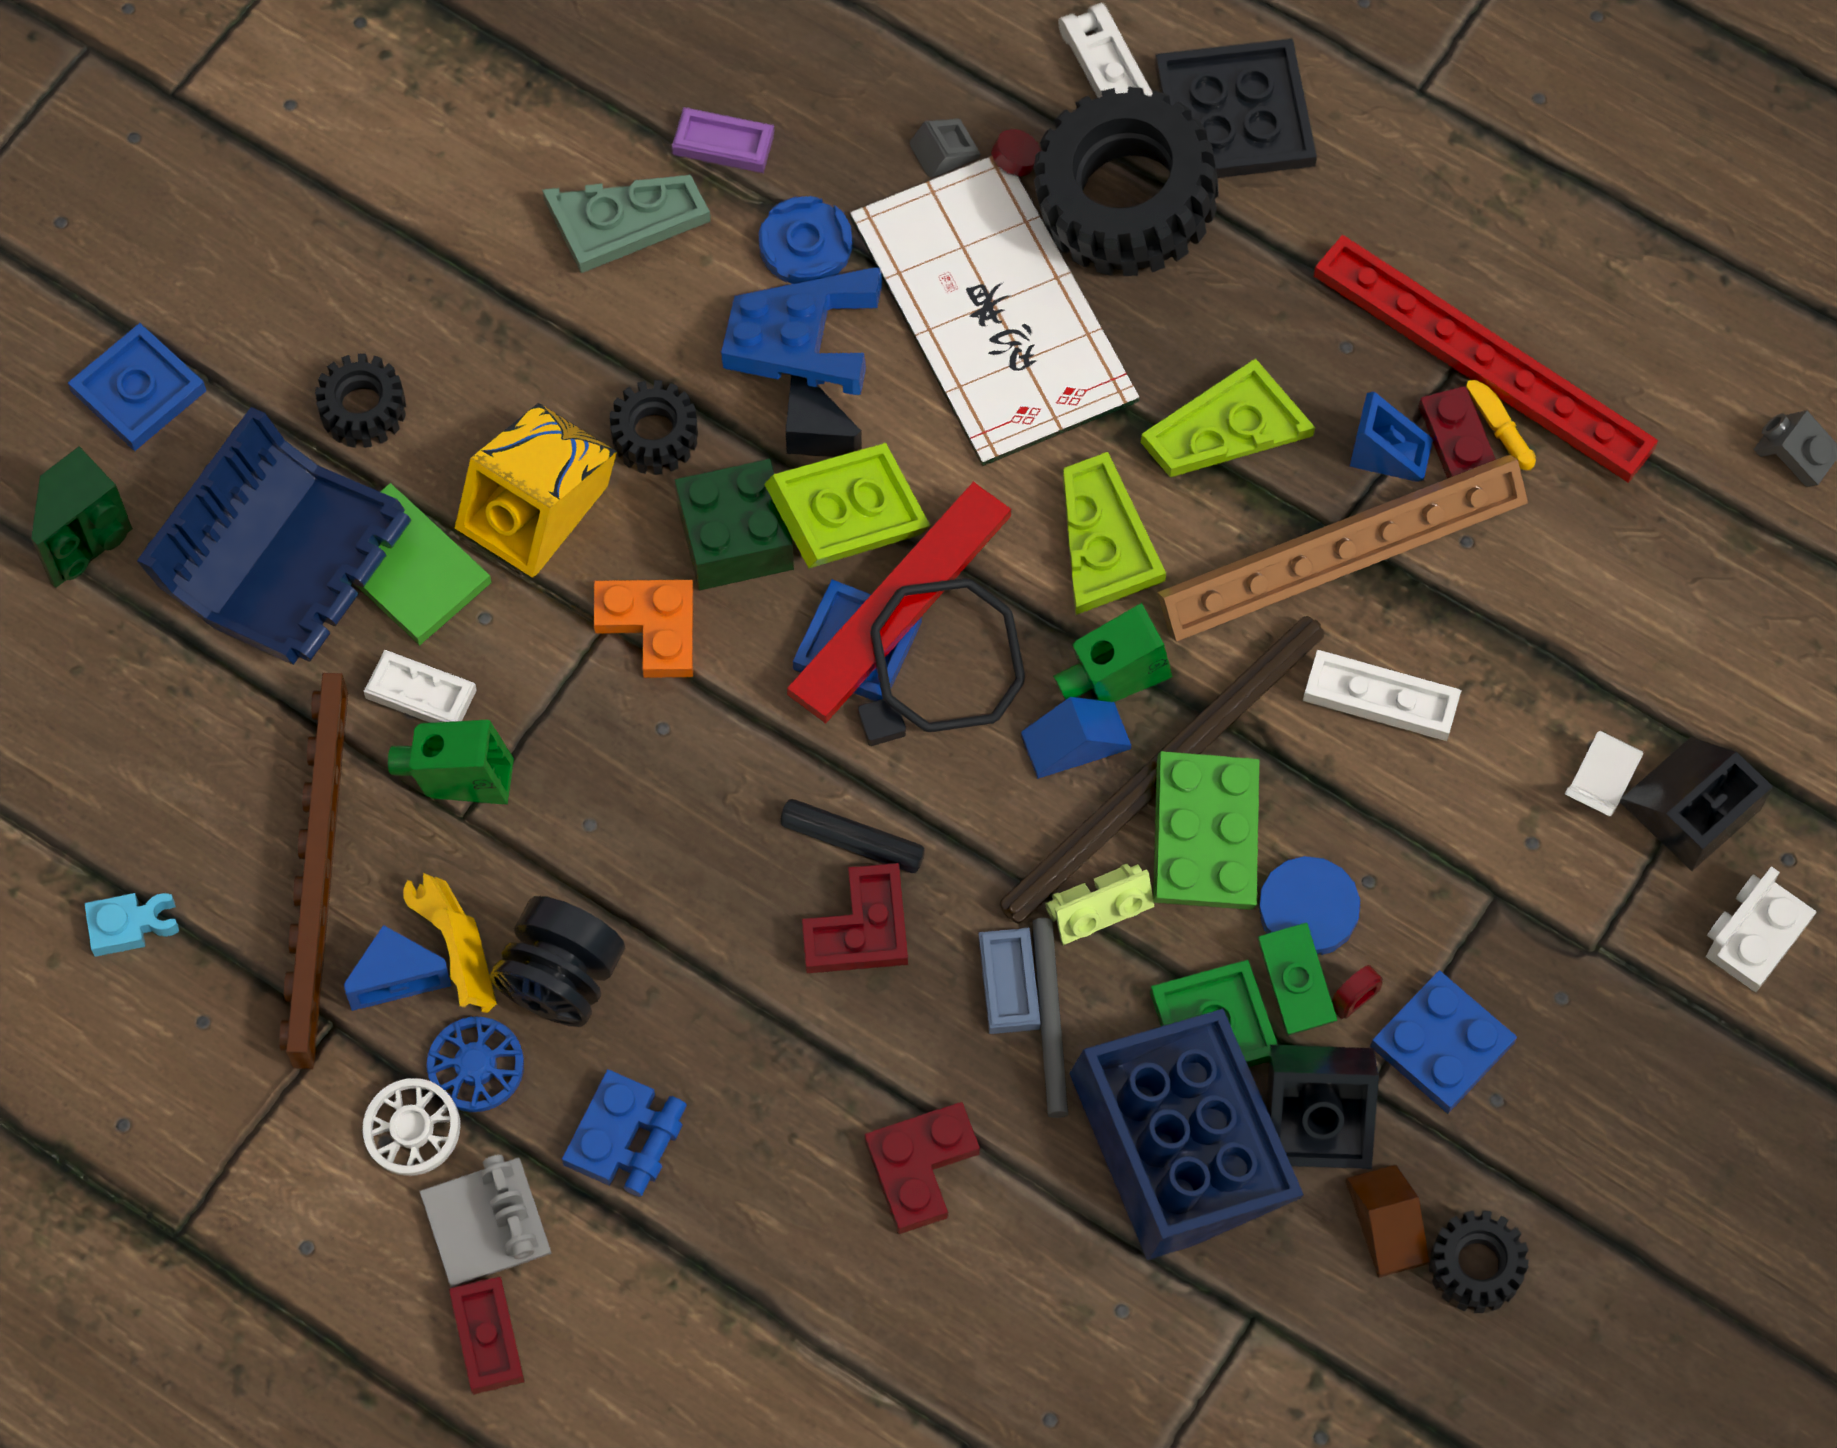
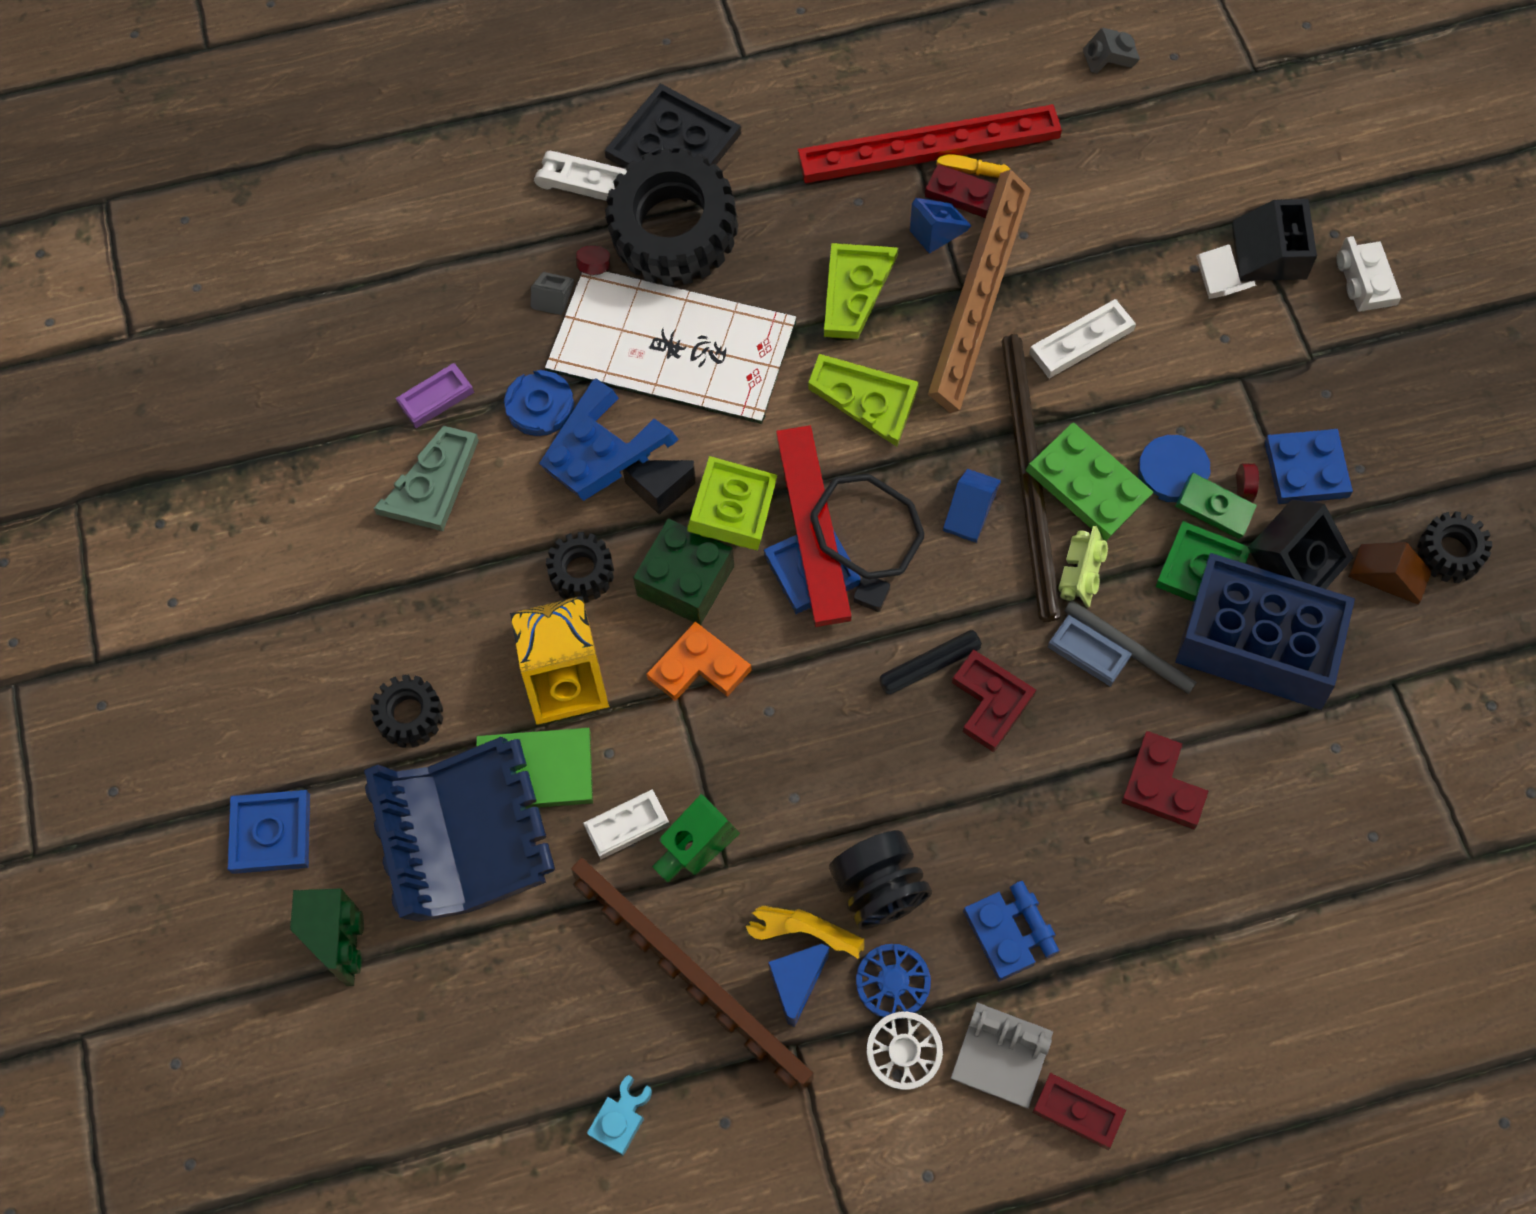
camera: 45 degrees left, 0 degrees up
(1117, 659) = (951, 443): green torso -> none

